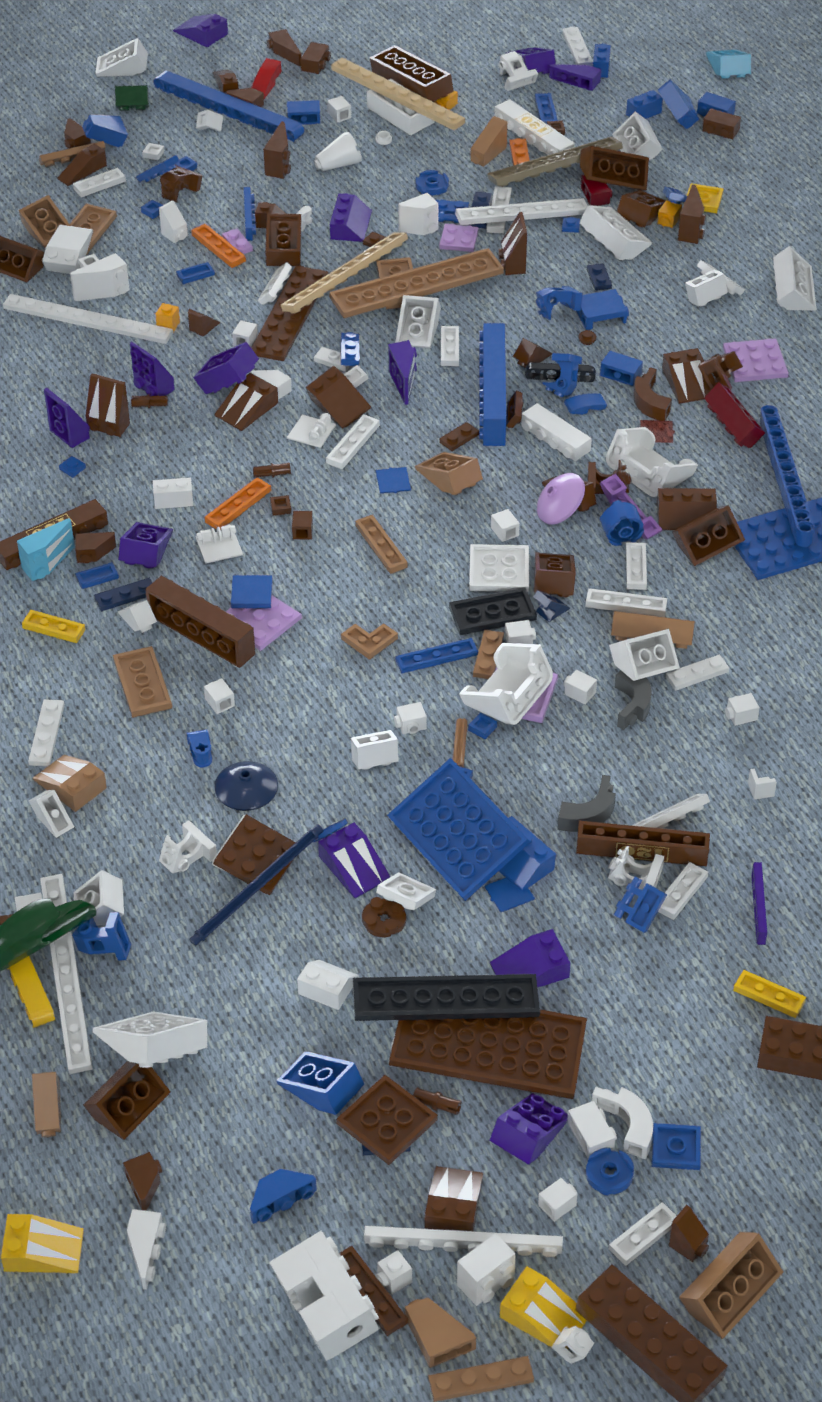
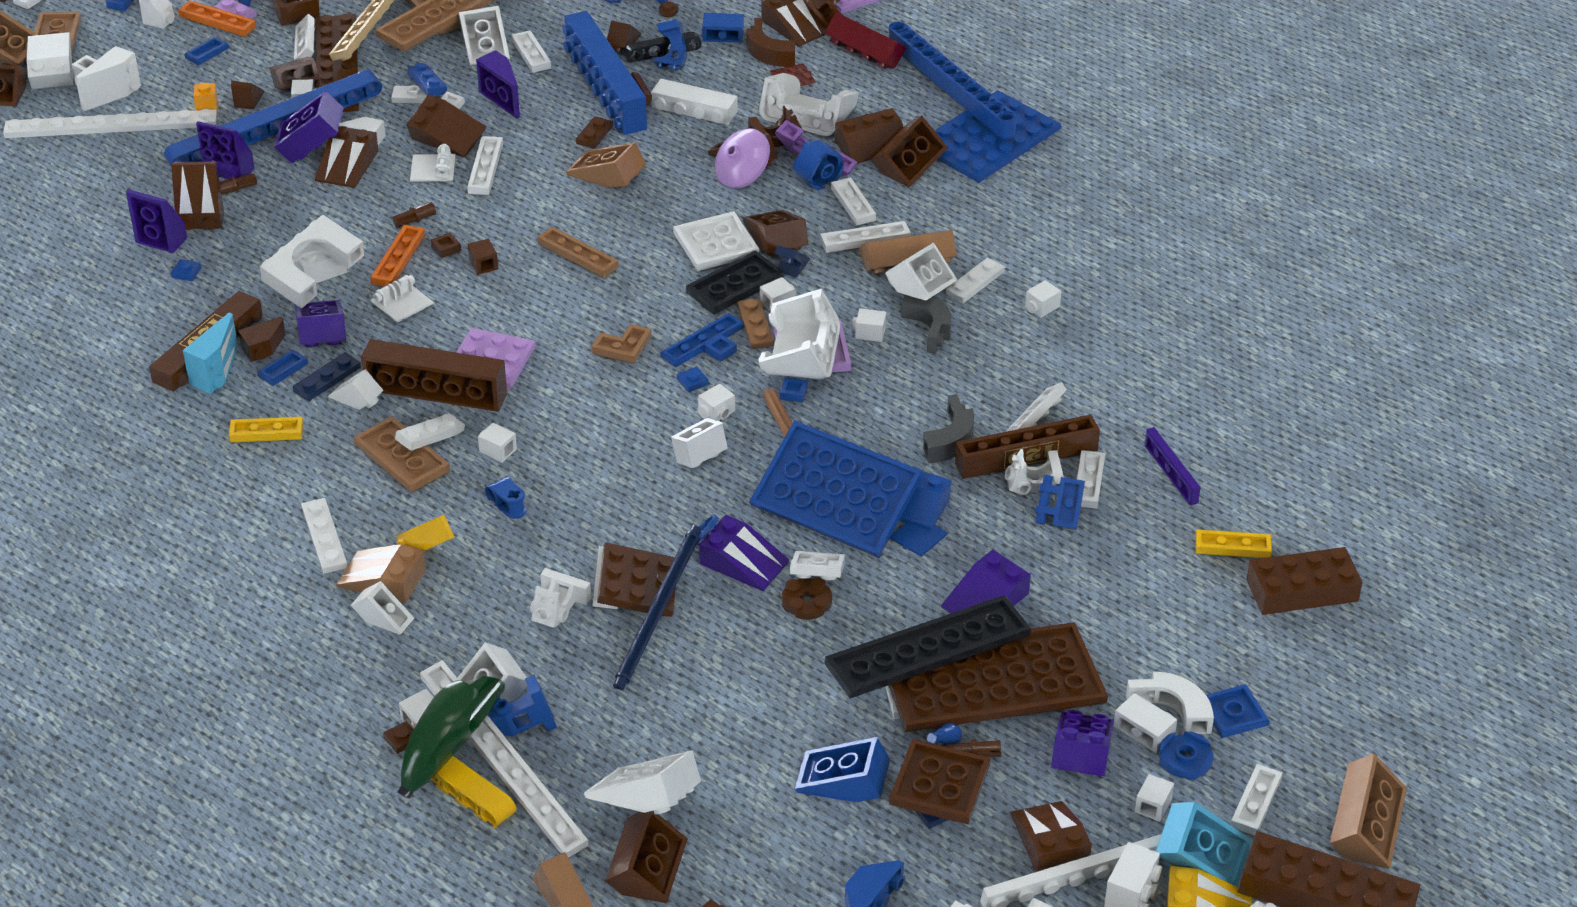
camera: 25 degrees left, 5 degrees down
(109, 761) = (427, 534): none -> yellow slope
(172, 472) = (319, 237): none -> white arch
(172, 669) = (429, 431): none -> white plate
(199, 352) = (268, 120): none -> blue beam
(246, 785) = (578, 520): dark blue dish -> none
(250, 312) = (294, 70): none -> brick
(251, 591) = (471, 332): blue tile -> none
(325, 983) = (788, 680): white slope -> none
(393, 480) = (550, 191): blue piece -> none
(407, 689) = (692, 379): none -> blue plate
(423, 1079) = (947, 733): none -> blue piece
(445, 668) = (720, 348): none -> blue plate
(505, 525) = (697, 199): white brick -> none
(564, 1257) = (1203, 842): none -> medium azure slope
(582, 403) = (704, 69): blue slope -> none
(688, 1235) = (1304, 783): reddish brown slope -> none
(761, 787) = (1104, 363): white panel -> none

